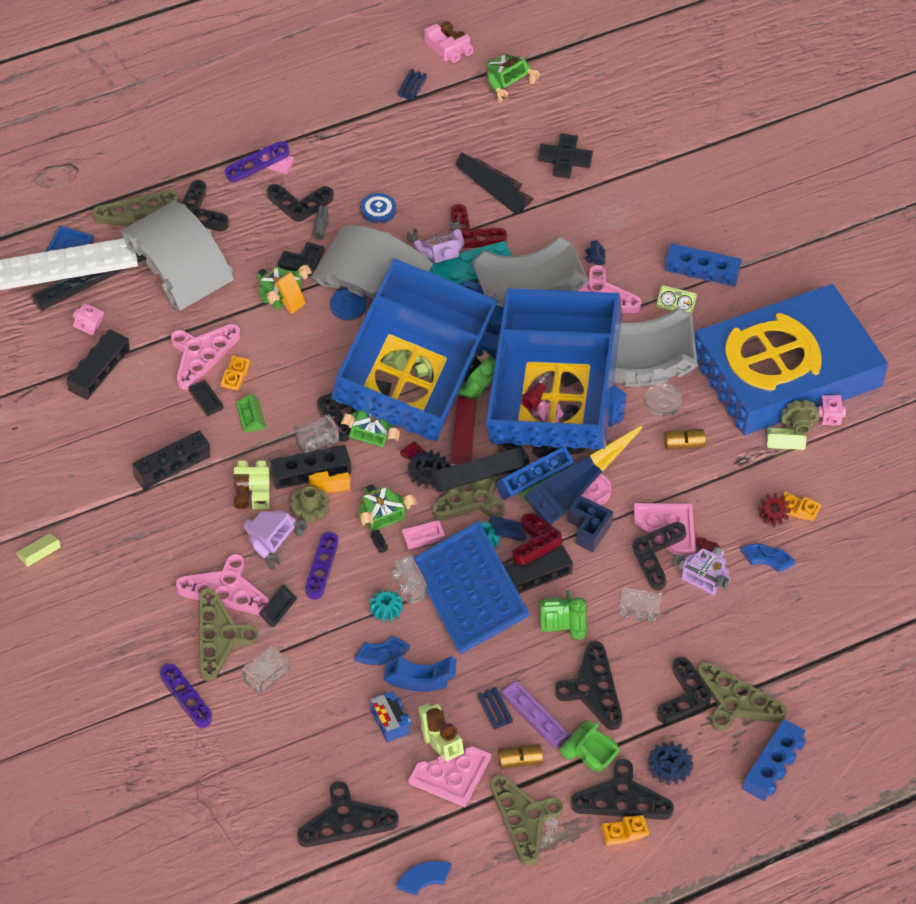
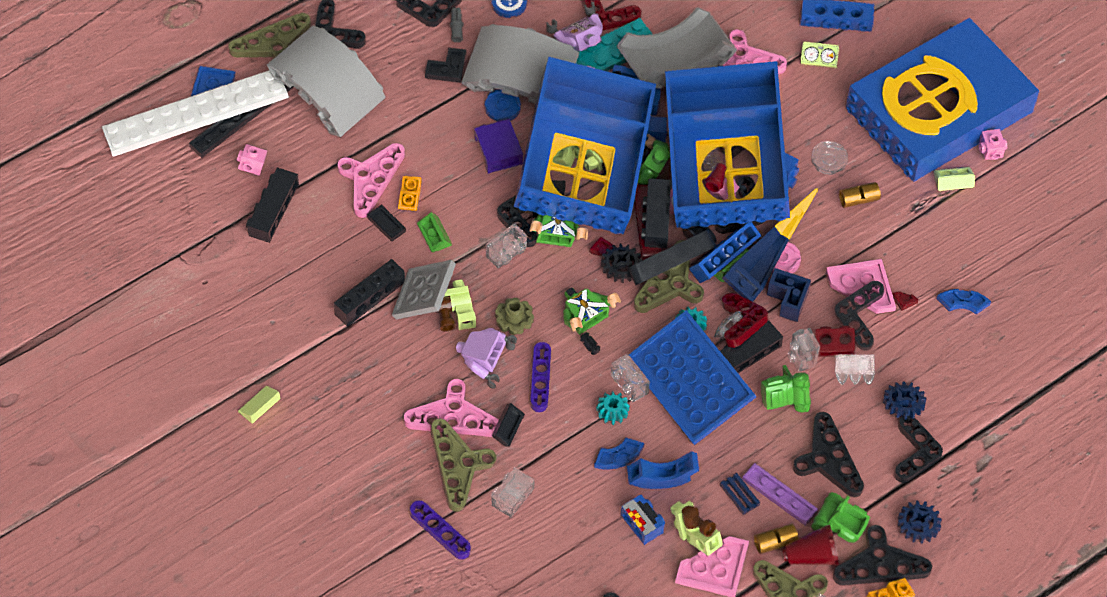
camera: 10 degrees left, 5 degrees up
(224, 464) = (423, 289): none -> light grey plate
(268, 290) = (433, 95): torso -> none
(291, 293) = (446, 102): light orange slope -> none
(332, 340) = (499, 145): none -> dark purple panel
(333, 460) = (502, 286): black brick -> none
(335, 483) = (529, 293): light orange slope -> none
(423, 535) = (631, 330): bright pink plate -> none
(472, 425) = (657, 213): none -> black wedge
(507, 528) = (710, 312): dark blue tile -> none
(519, 540) = (726, 323): none -> clear dish
(554, 771) = (812, 549): none -> dark red cone
(590, 577) = (804, 349): none -> clear brick
(595, 253) = (732, 18): dark blue tile -> none
(624, 579) = (835, 346): none -> dark red brick
(656, 350) = (816, 108): light grey panel -> none
(683, 643) = (904, 400): none -> dark blue gear
(704, 569) = (909, 323): torso -> none
(745, 704) = (976, 453): olive beam -> none
(763, 786) = (1004, 528): blue brick -> none
(781, 509) = (955, 255): dark red gear -> none
(800, 416) = (965, 156): olive plant -> none
(803, 509) = (987, 247): light orange slope -> none

